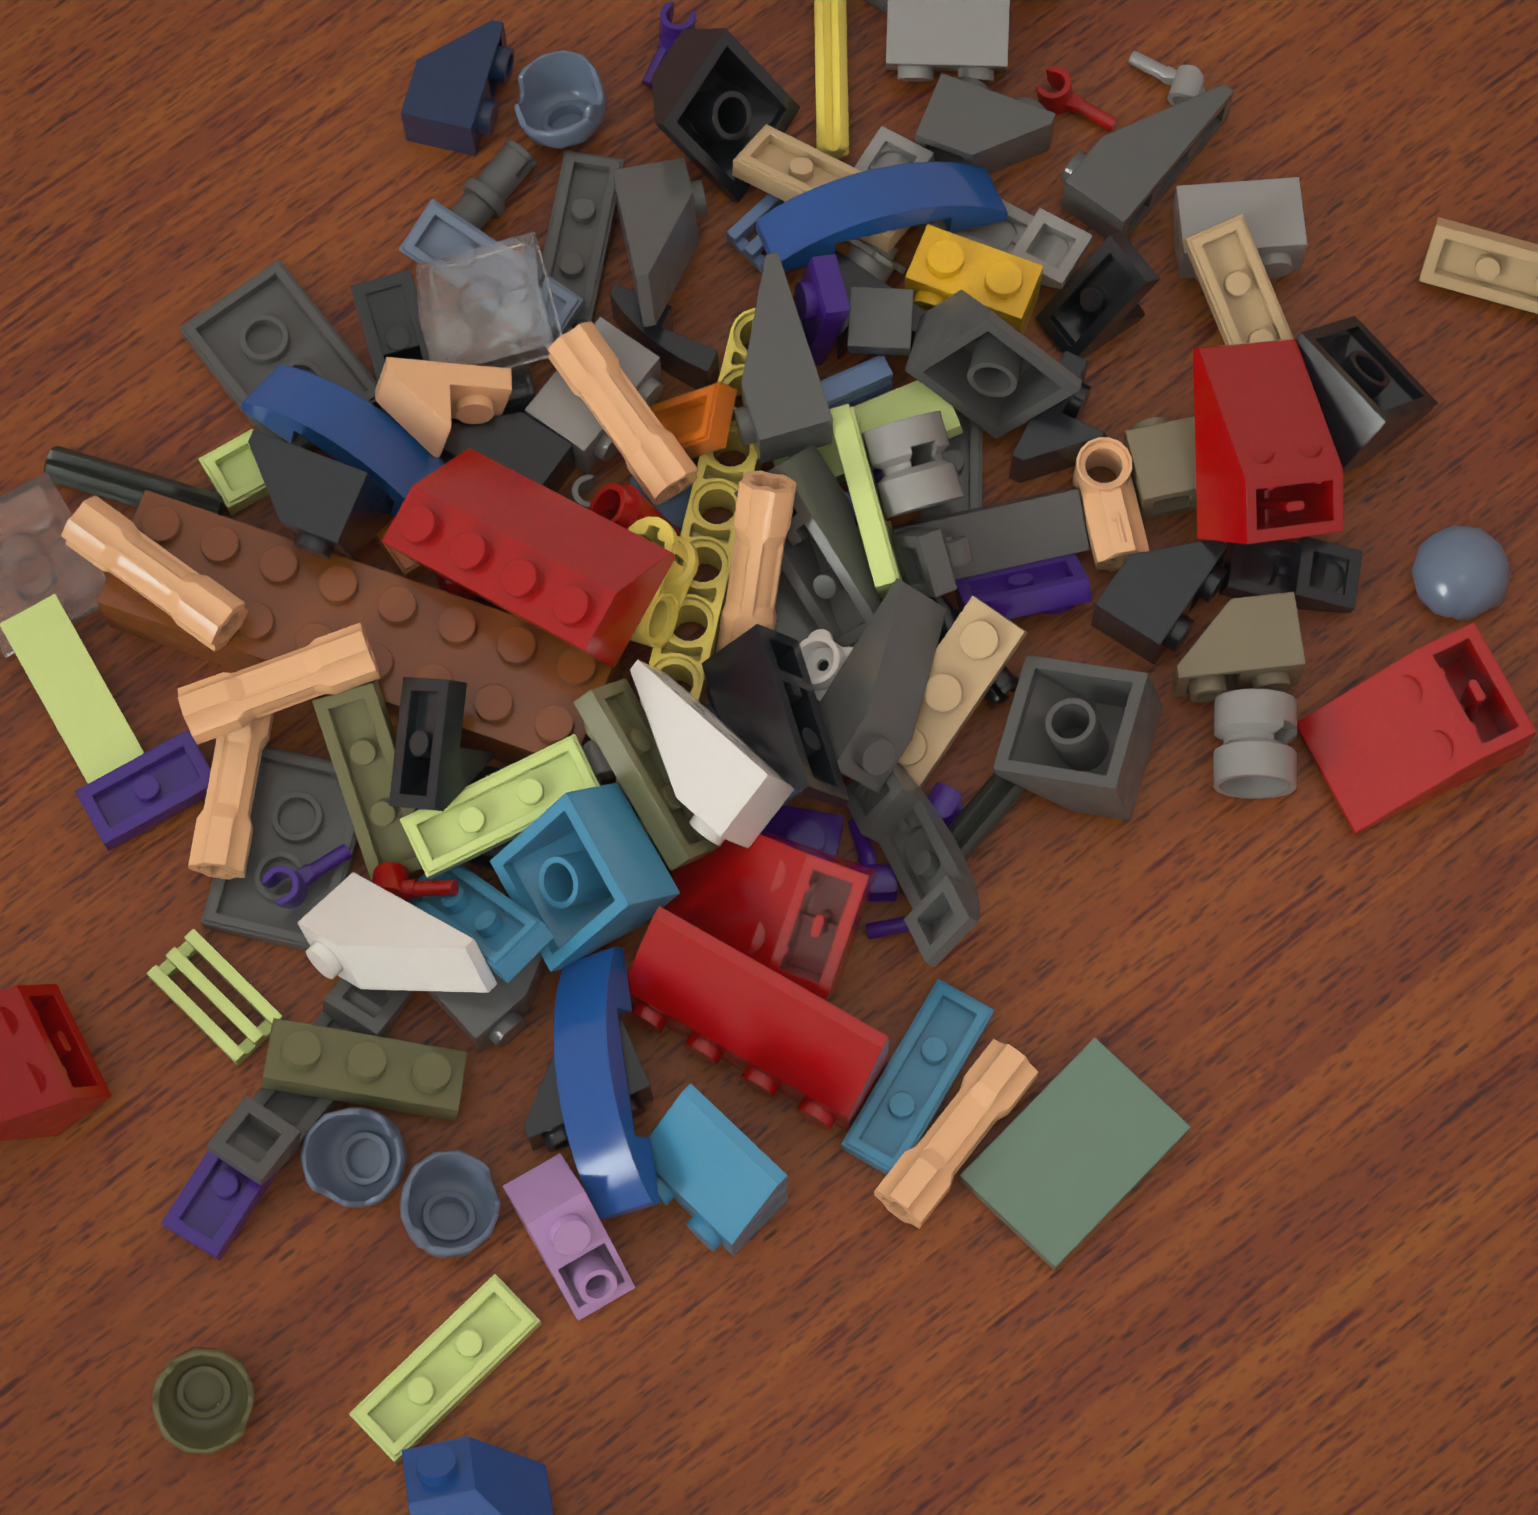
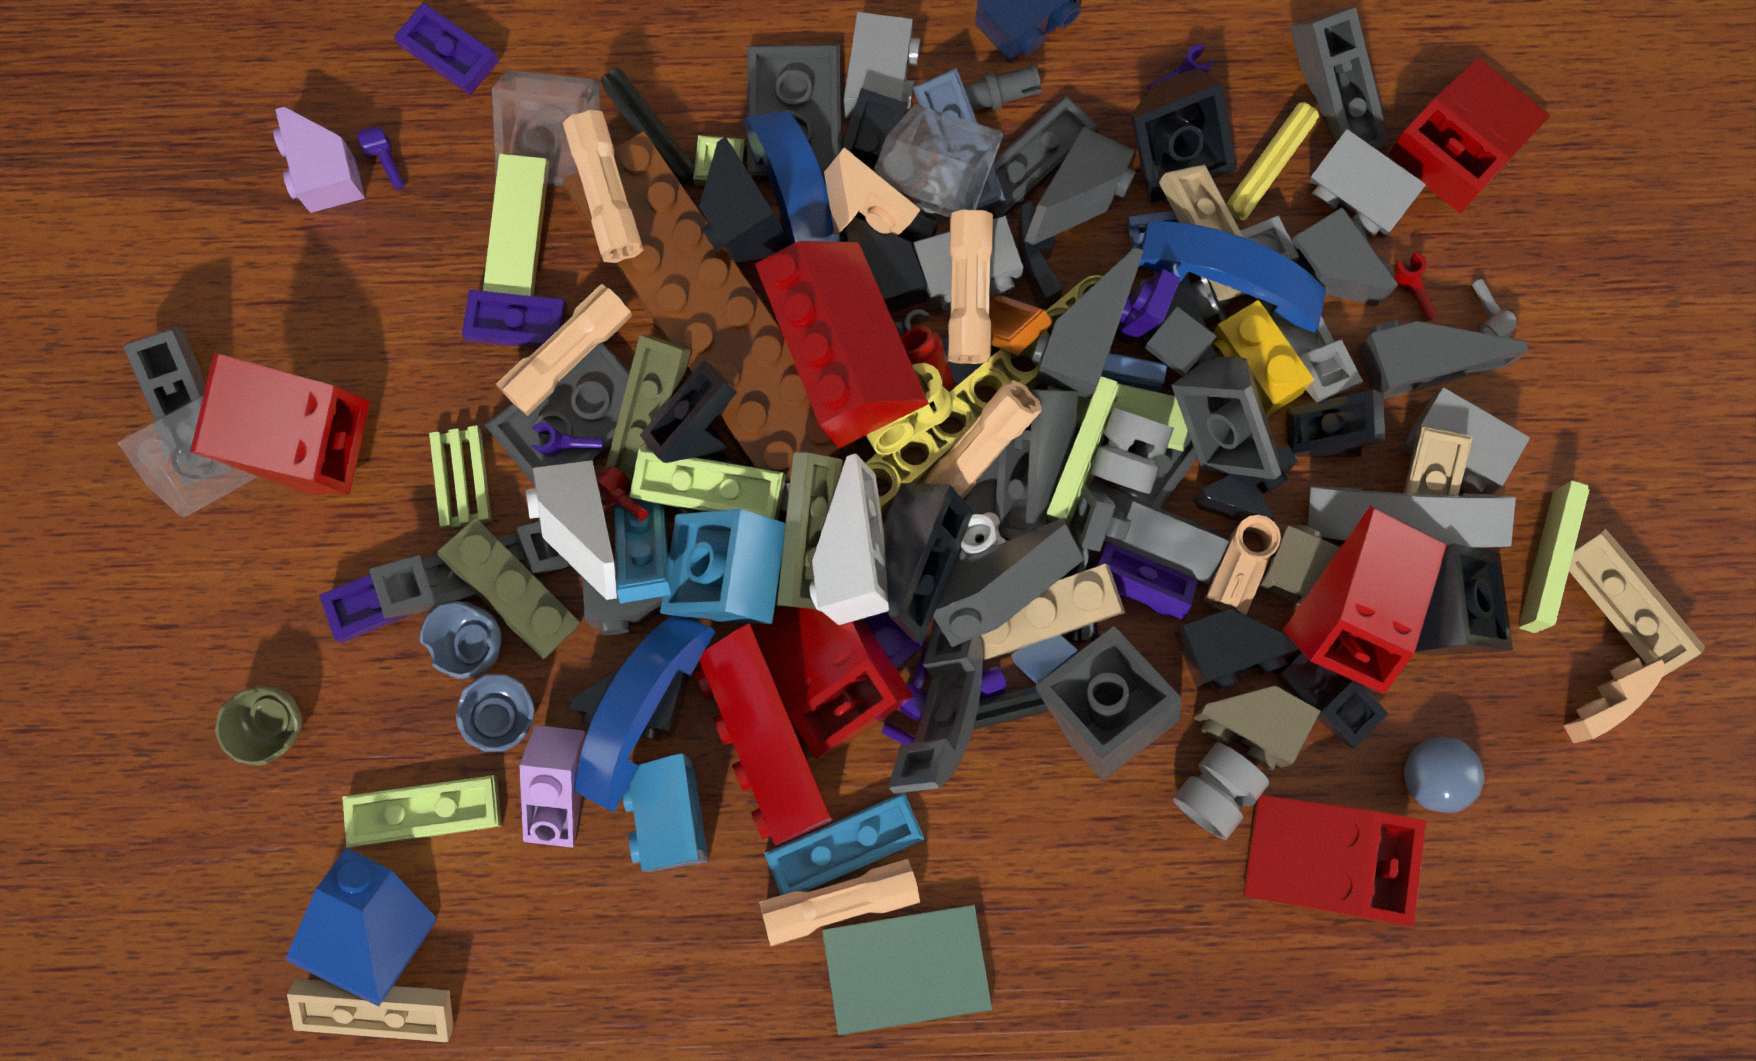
camera: 35 degrees right, 5 degrees up
(234, 699) = (589, 300): light nougat axle -> none
(339, 246) = (881, 59): none -> light grey brick
(560, 99) = (1085, 61): sand blue hair -> none
(978, 741) = (1043, 657): none -> medium blue tile
(1292, 304) = (1460, 520): none -> light grey slope
(1409, 281) = (1554, 557): none -> yellowish green tile

